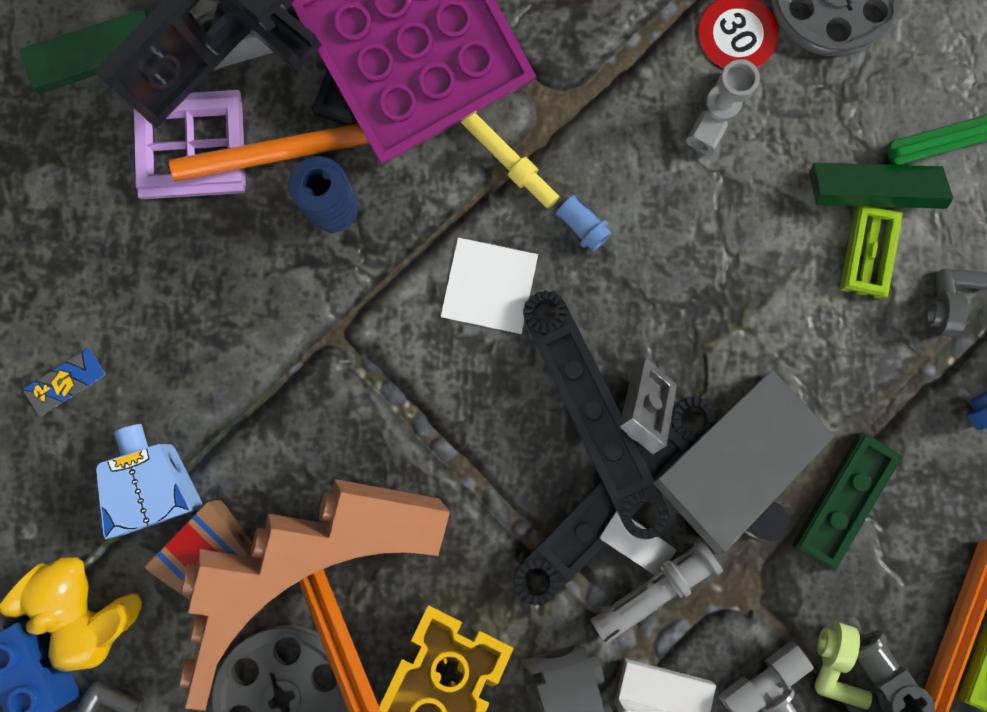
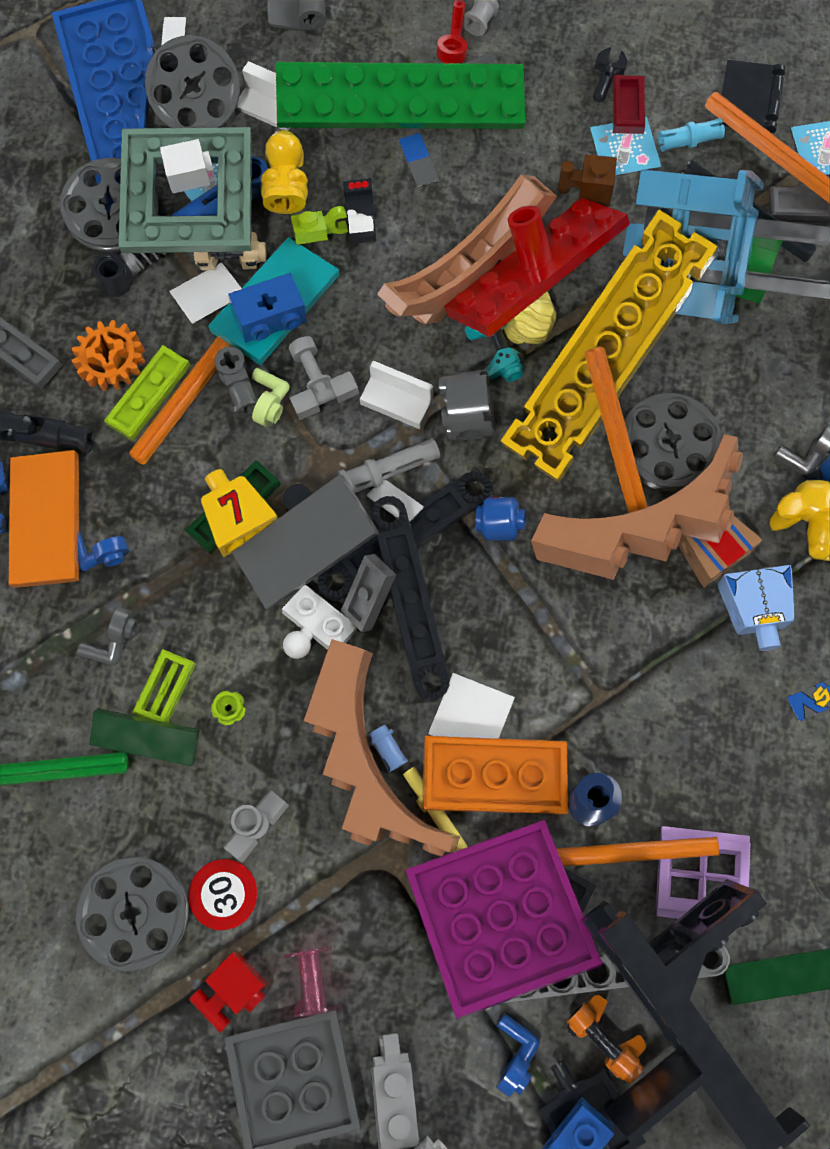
camera: 160 degrees left, 10 degrees down
(449, 212) = (495, 775): none -> orange tile
(495, 542) = (500, 518): none -> blue head
(652, 250) = (339, 708): none -> nougat arch
(702, 365) = (316, 621): none -> white plate
(798, 239) = (219, 705): none -> lime plate
(849, 486) = (234, 511): none -> yellow torso

